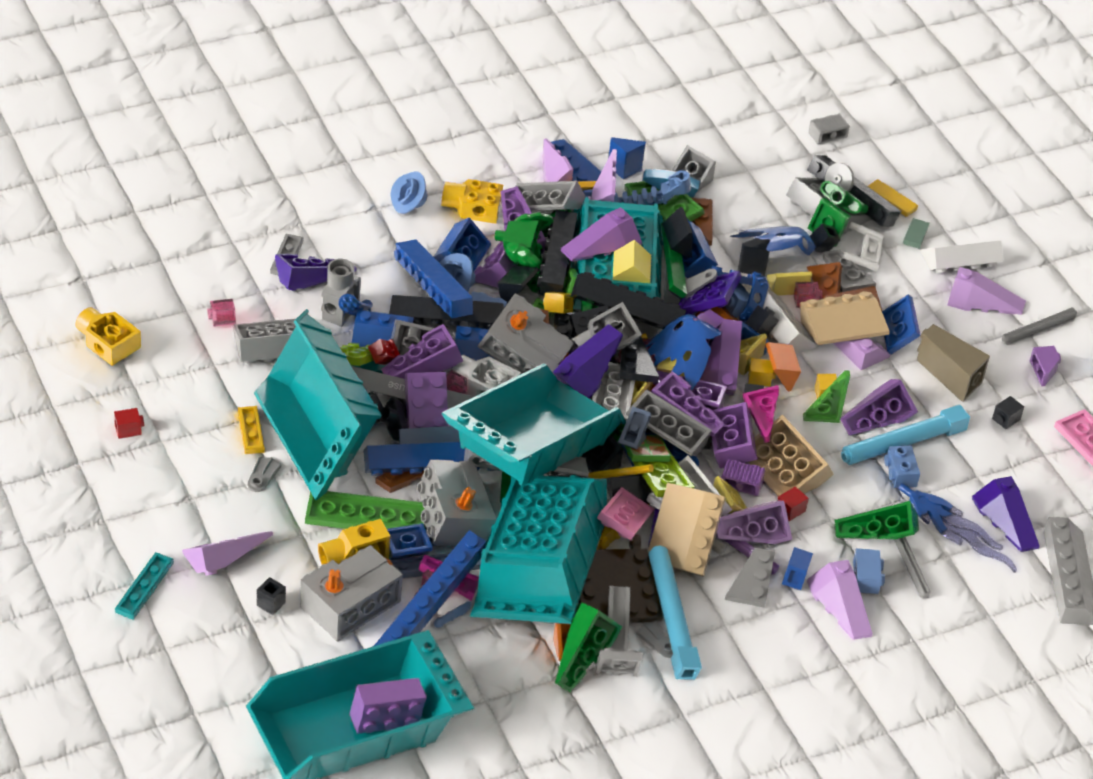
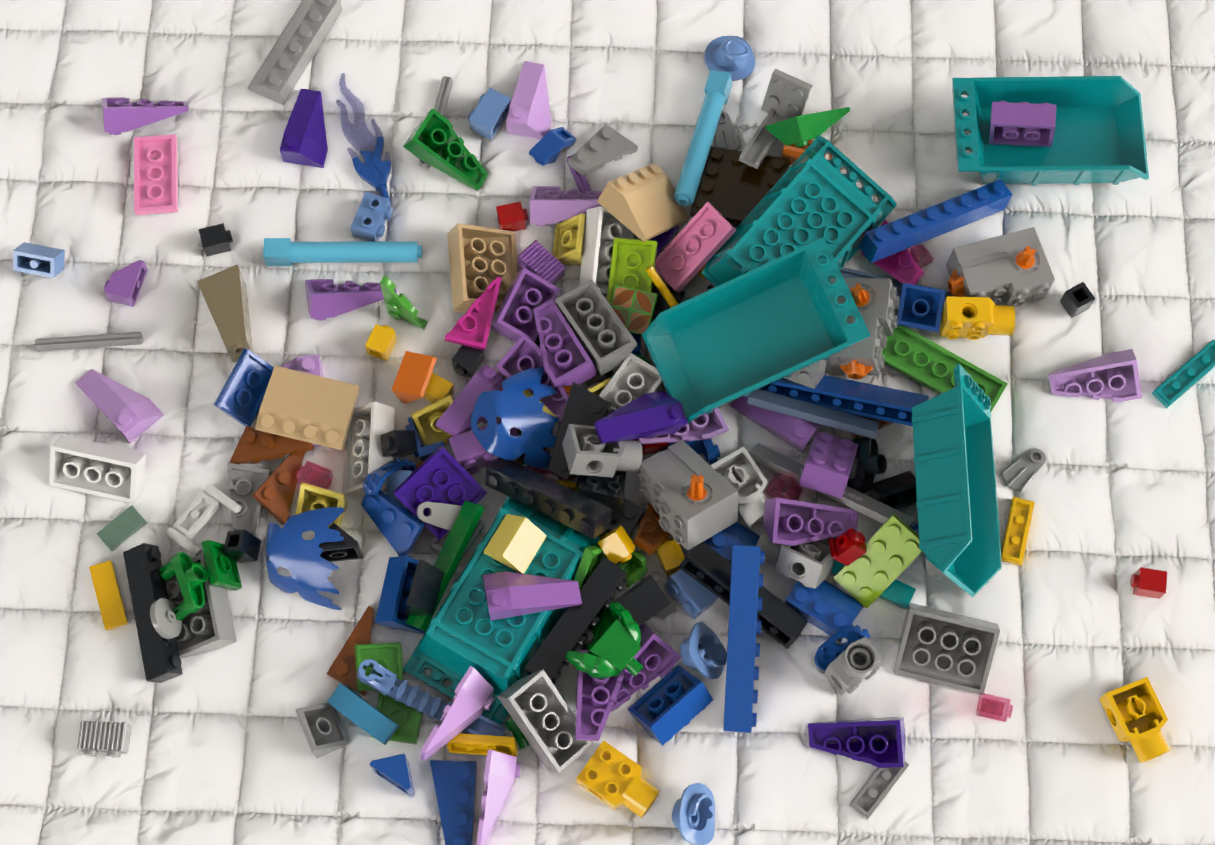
camera: 150 degrees left, 25 degrees up
(635, 427) = (638, 319): sand blue slope -> none
(691, 696) = (730, 55): none -> medium blue hat

